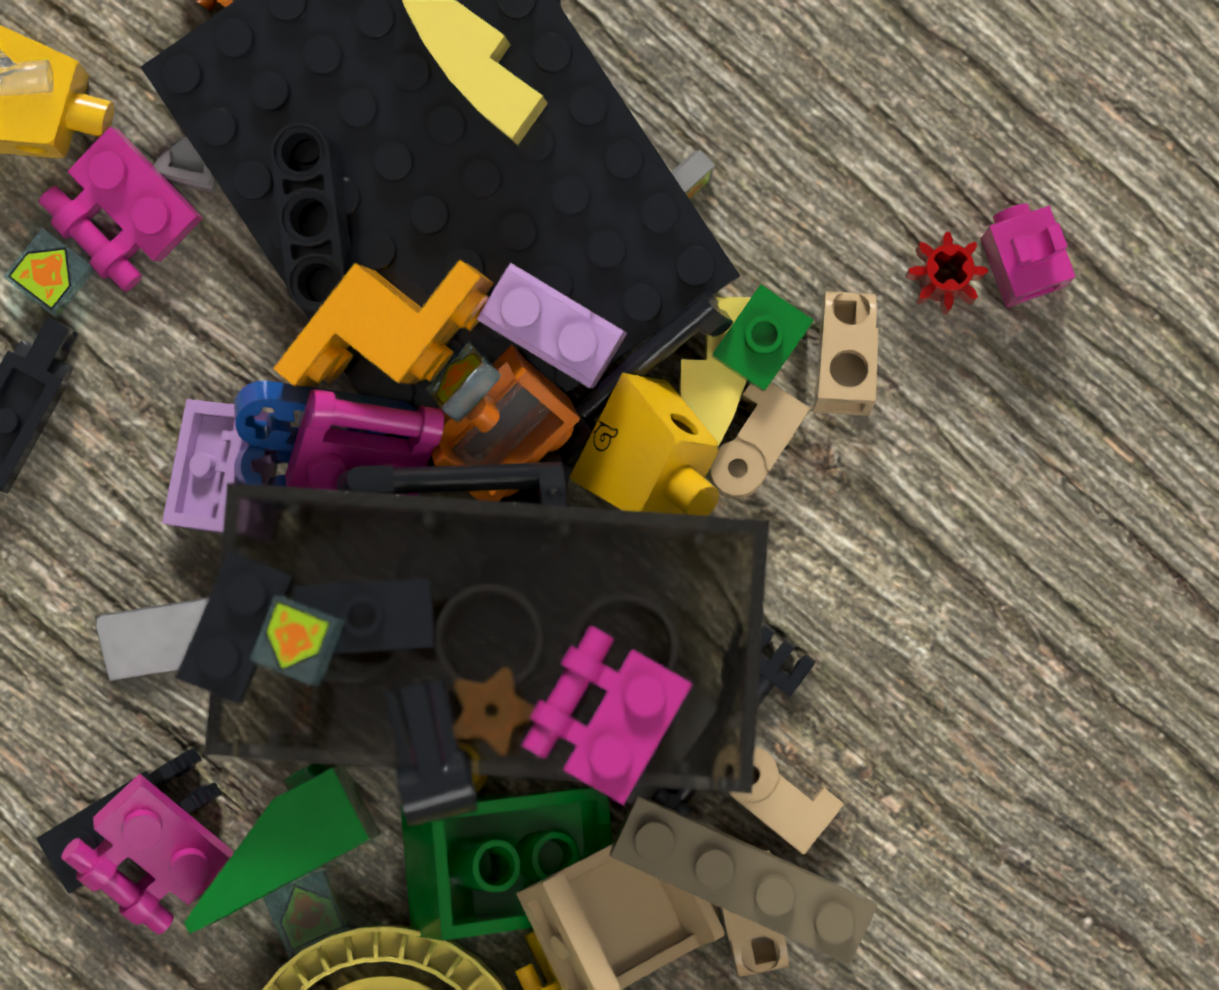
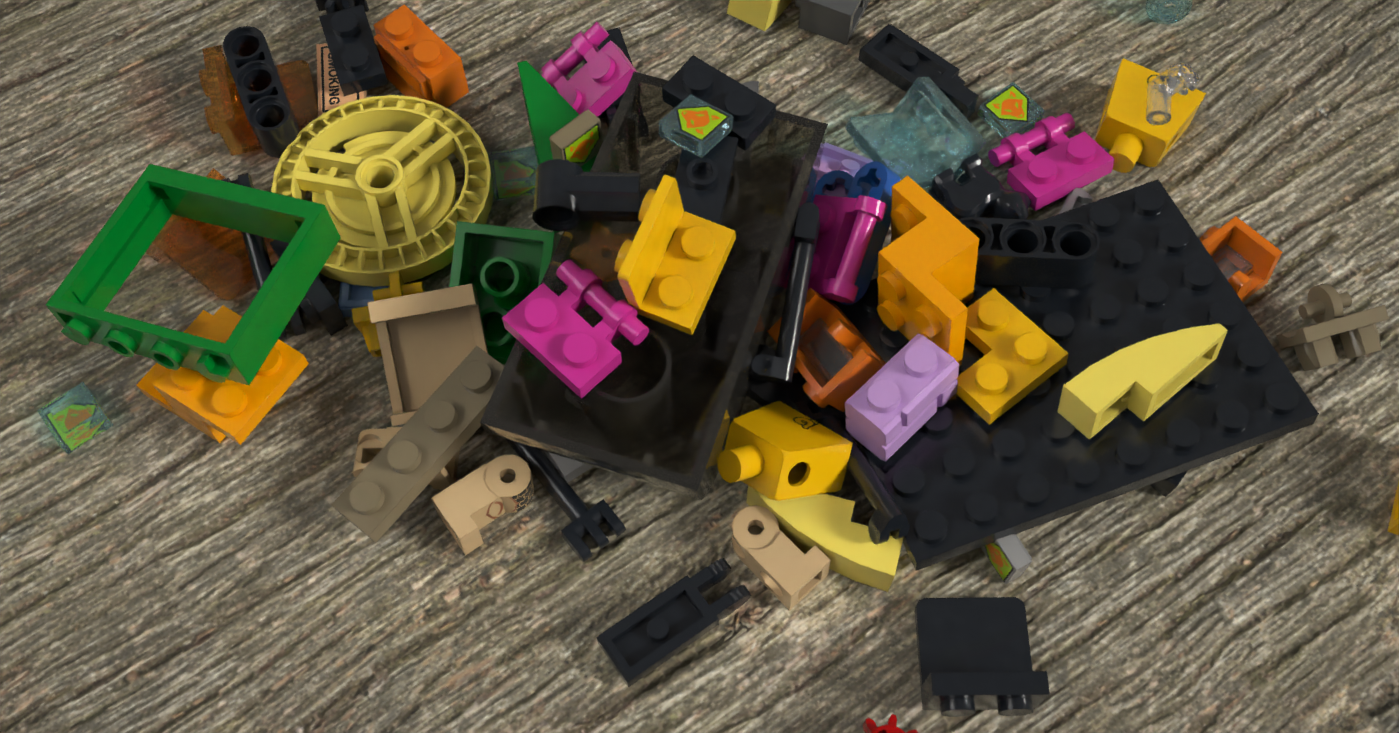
camera: 105 degrees right, 20 degrees down
(144, 387) = (919, 136): none -> clear light blue bracket
(216, 302) = (977, 193): none -> black animal
(319, 805) = (578, 139): none -> dark tan tile
(453, 201) = (1014, 359): none -> yellow plate
(463, 382) = (870, 330): clear light blue tile -> none
(506, 606) = (672, 259): none -> yellow bracket
(762, 338) = (860, 571): green bracket -> none
(816, 195) = (976, 657): none -> black bracket
(847, 354) = (833, 647): tan leg -> none
(866, 541) = (669, 623): none -> black hinge

